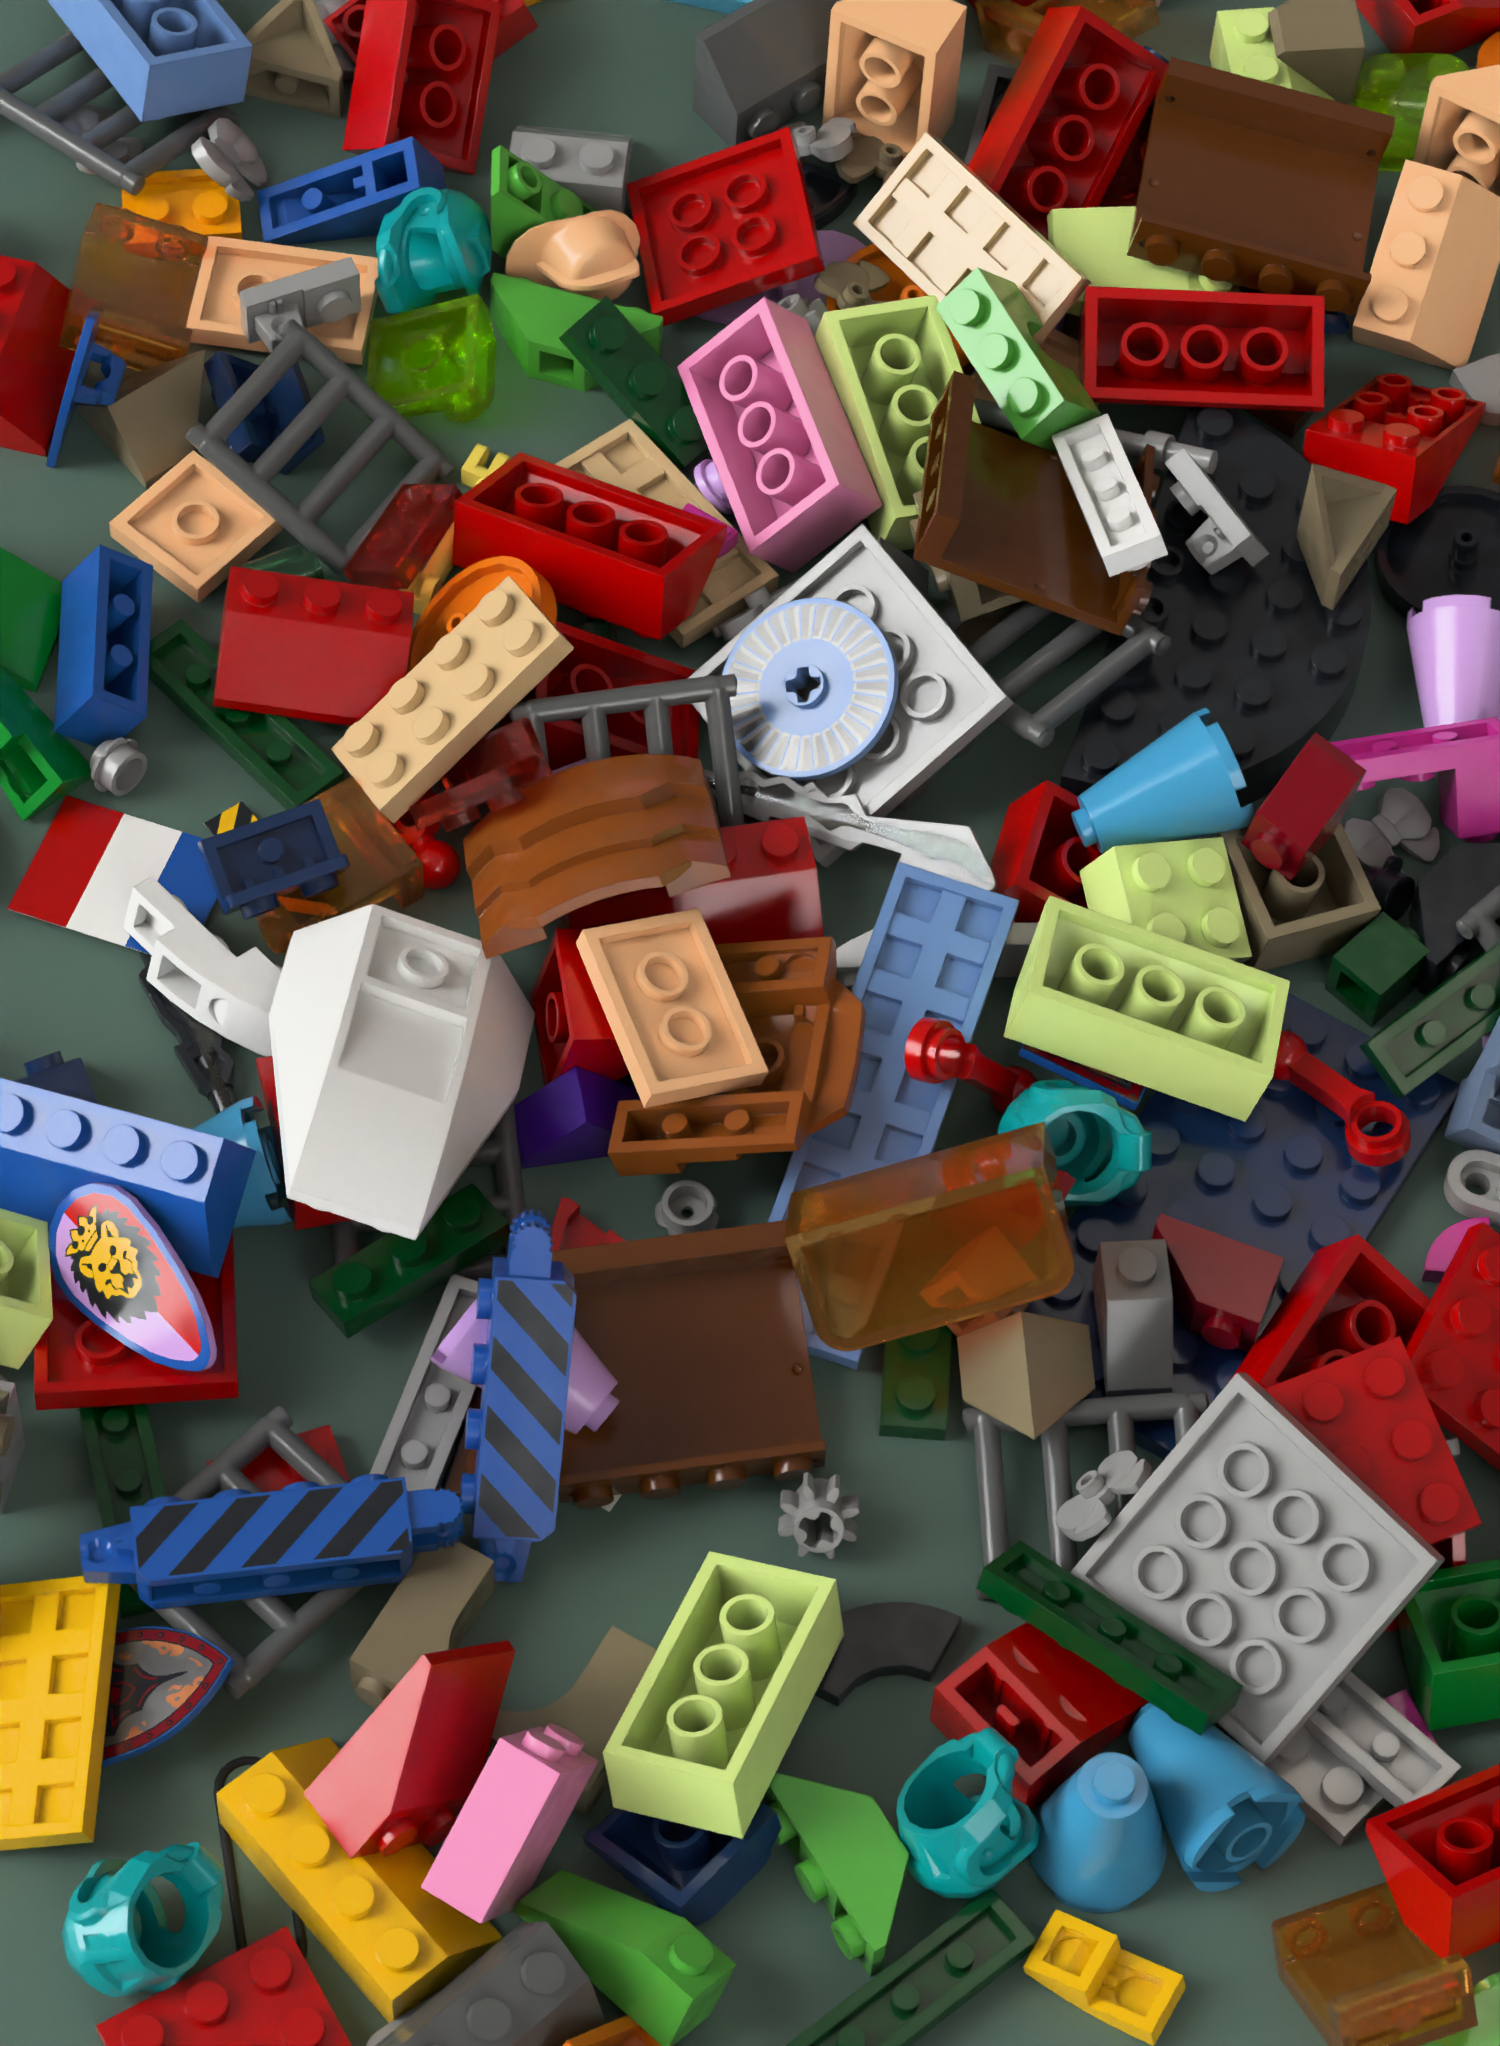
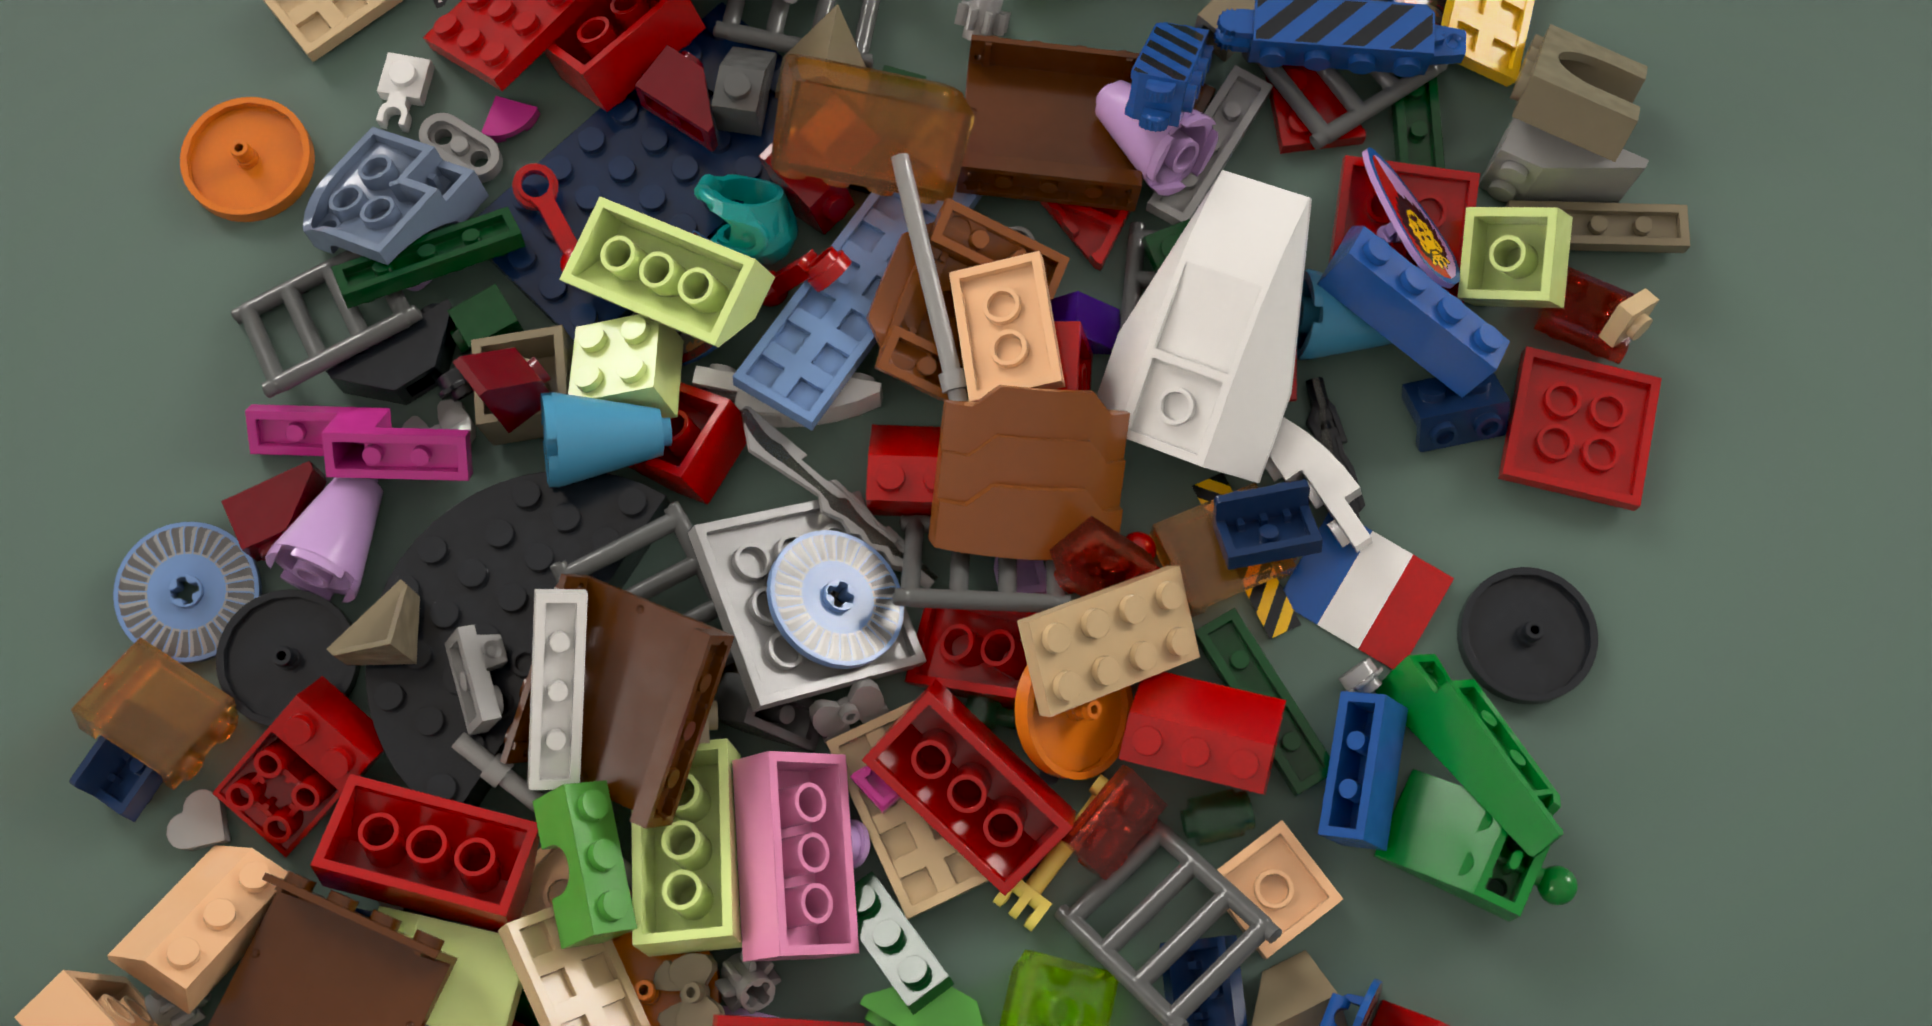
camera: 165 degrees left, 15 degrees up
(790, 1047) = (952, 376): none -> light grey bar

